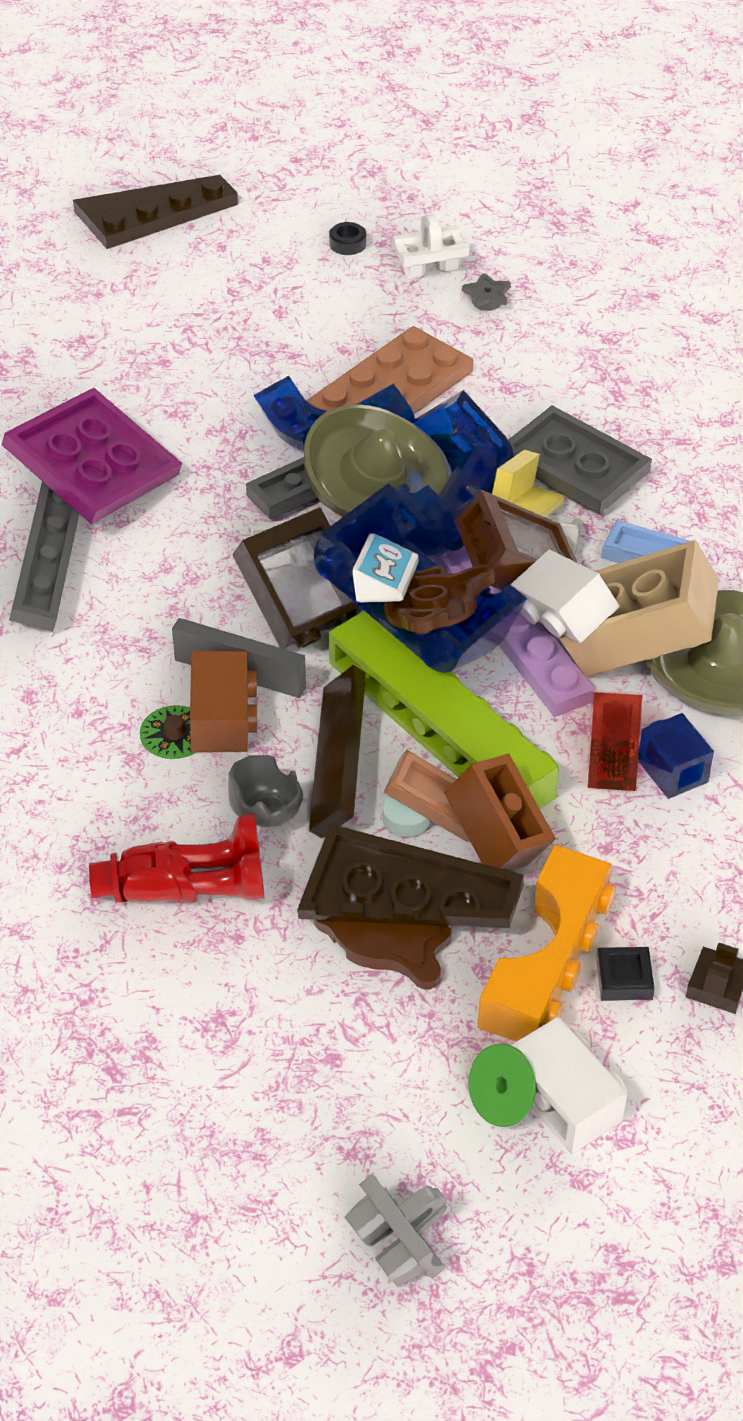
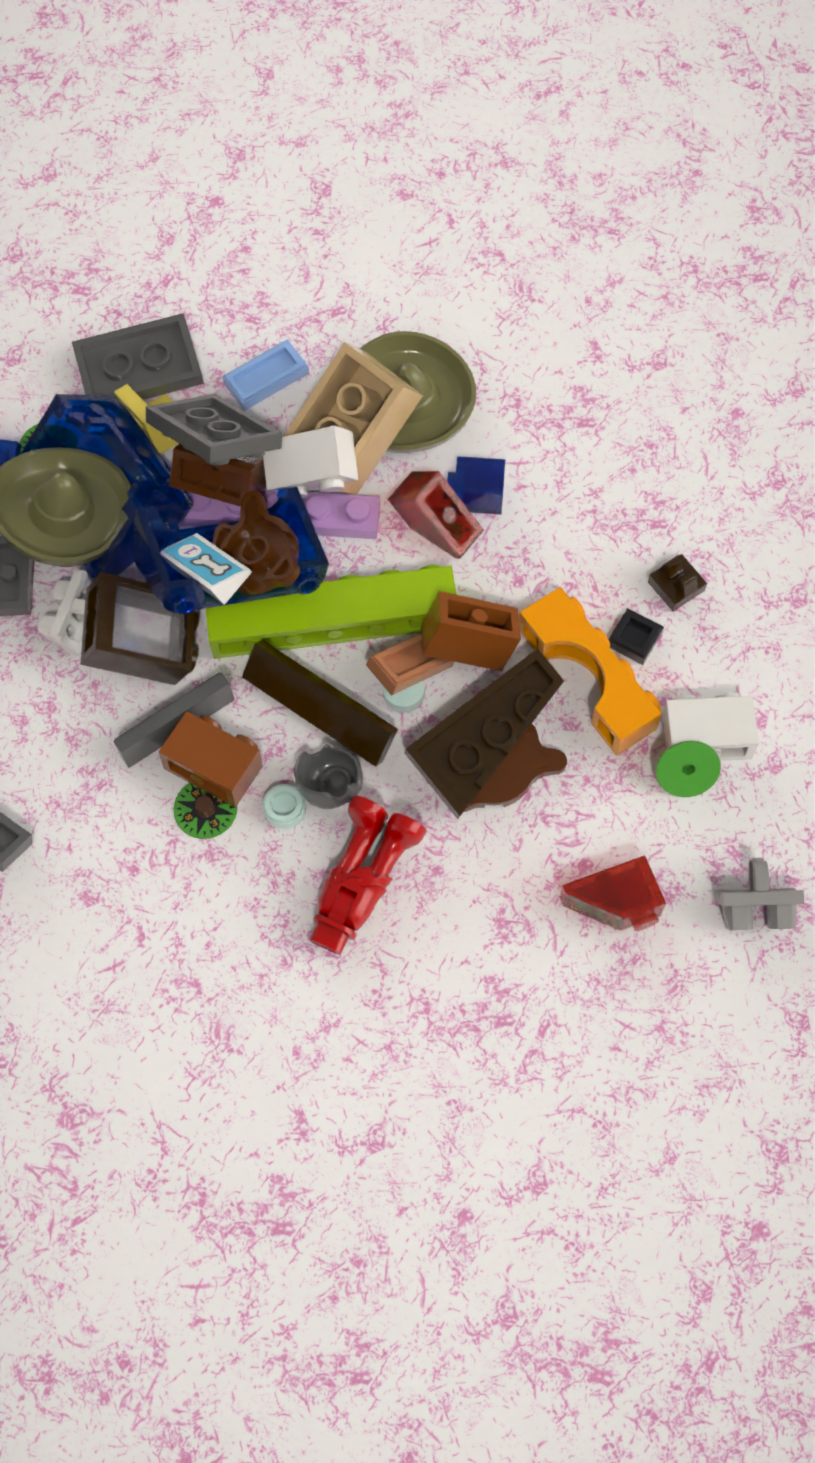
camera: 55 degrees left, 20 degrees up
(211, 784) = (284, 806): none -> light aqua tile
(314, 1093) = (618, 896): none -> clear red slope
(526, 507) = (214, 428): none -> dark grey plate

